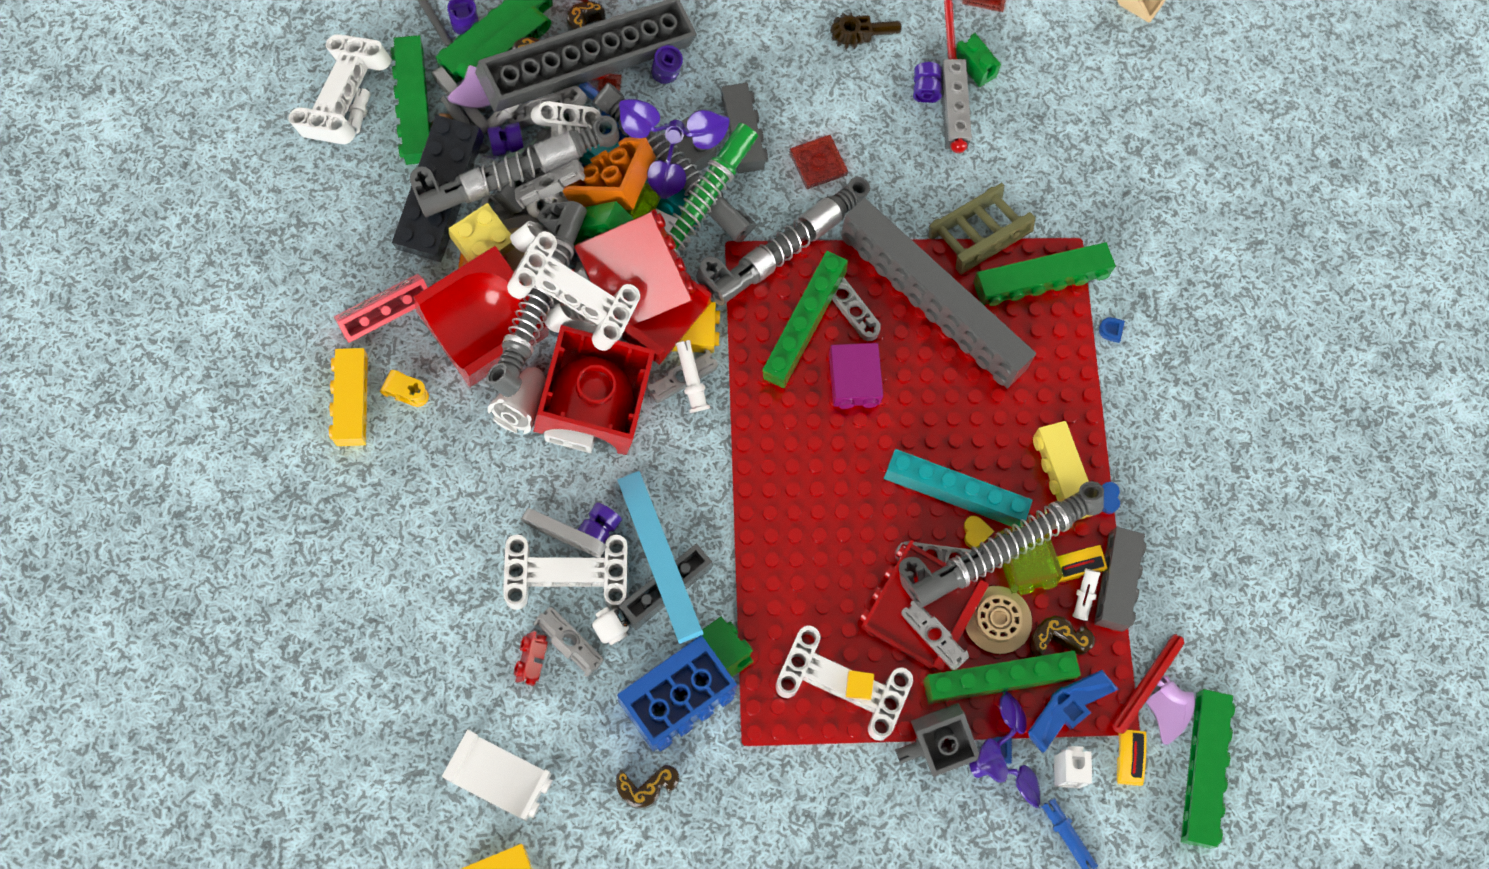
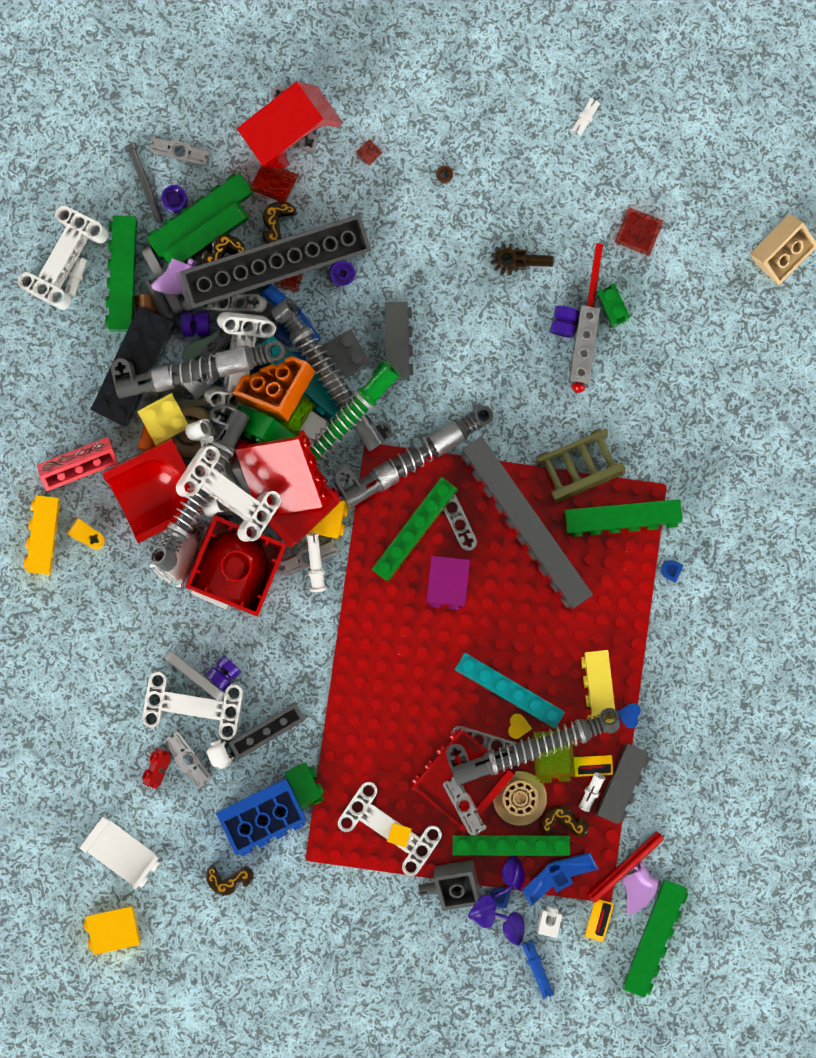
camera: 15 degrees right, 15 degrees up
(559, 177) = (235, 382): light grey piece -> none
(660, 558) = (264, 708): medium azure tile -> none
(704, 125) = (355, 367): dark purple plant -> none
(818, 161) = (456, 381): clear red plate -> none

